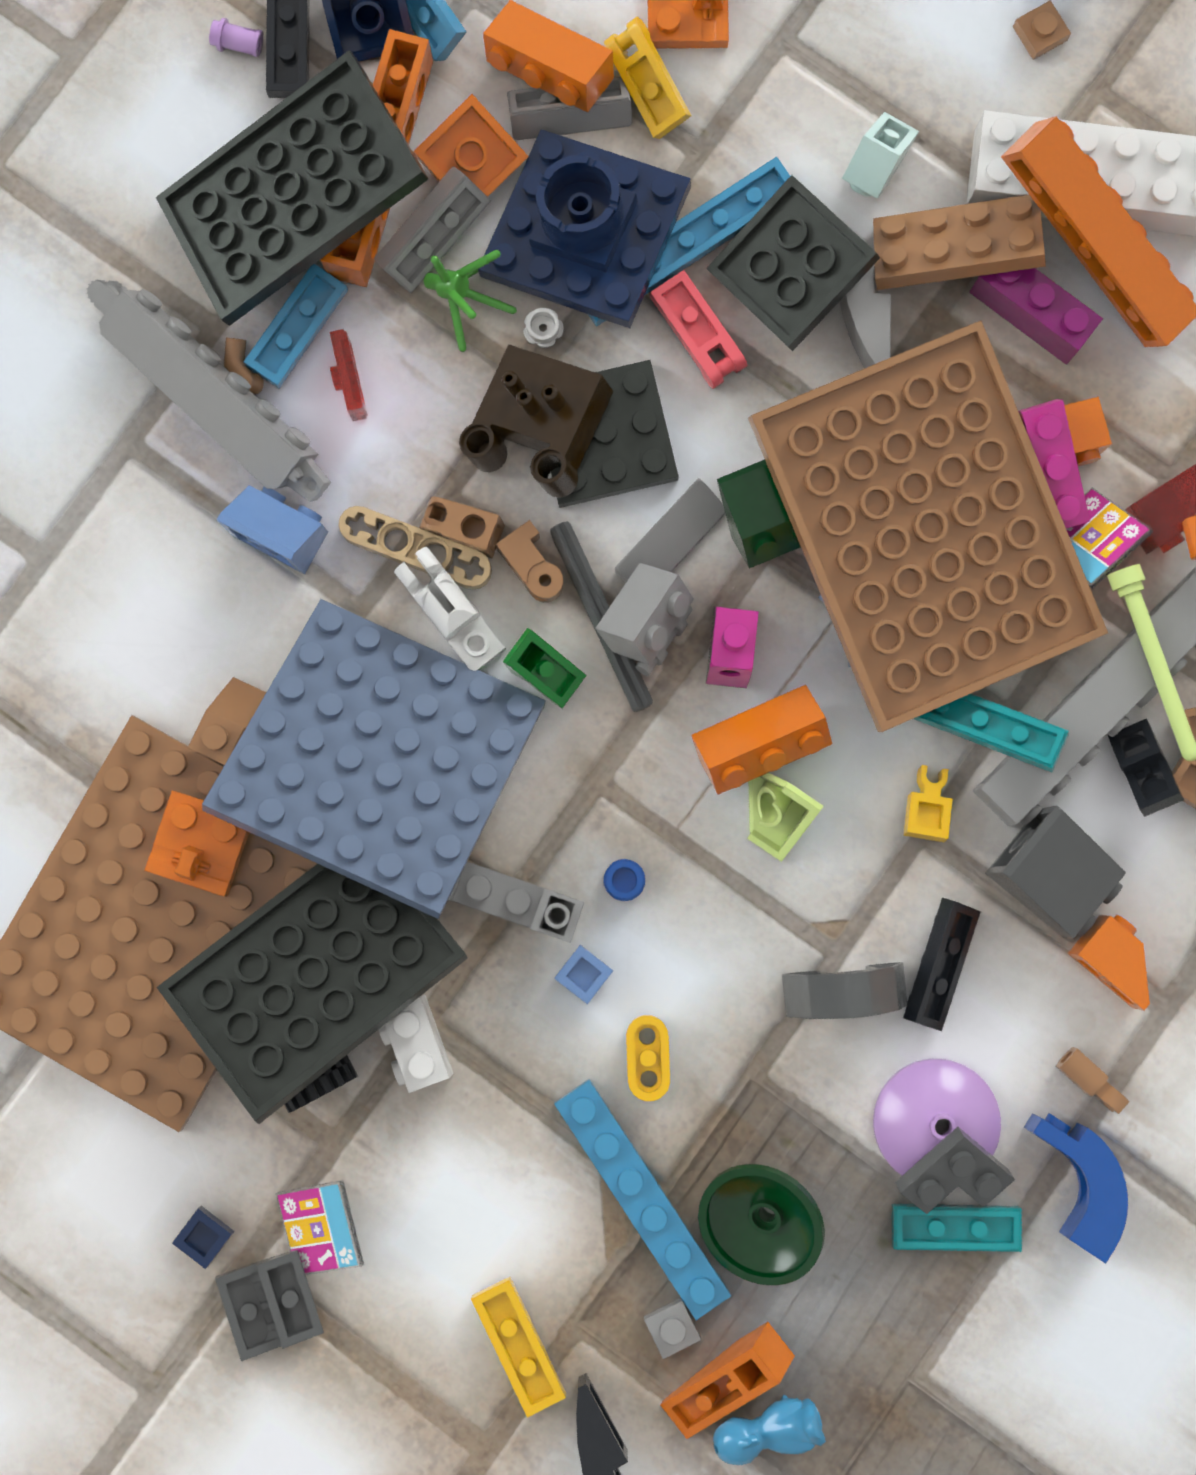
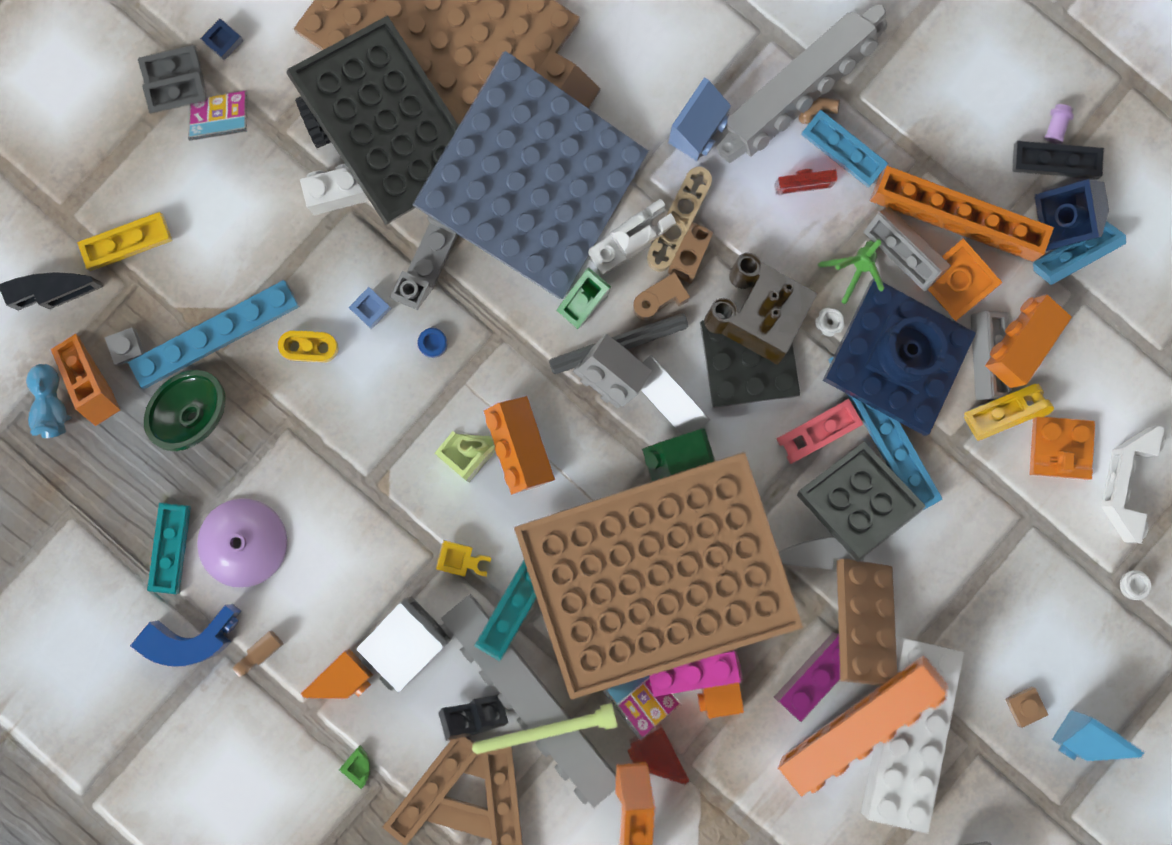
camera: 90 degrees right, 0 degrees up
(196, 846) = (480, 50): orange hinge -> none
(290, 188) = (941, 149): pearl dark grey plate -> none
(732, 647) = (589, 431): dark pink torso -> none
(845, 994) = (330, 486): dark grey connector -> none
(879, 155) = (939, 575): light aqua slope -> none
(941, 964) = (349, 556): black plate -> none
(954, 1164) = (210, 548): dark grey plate -> none

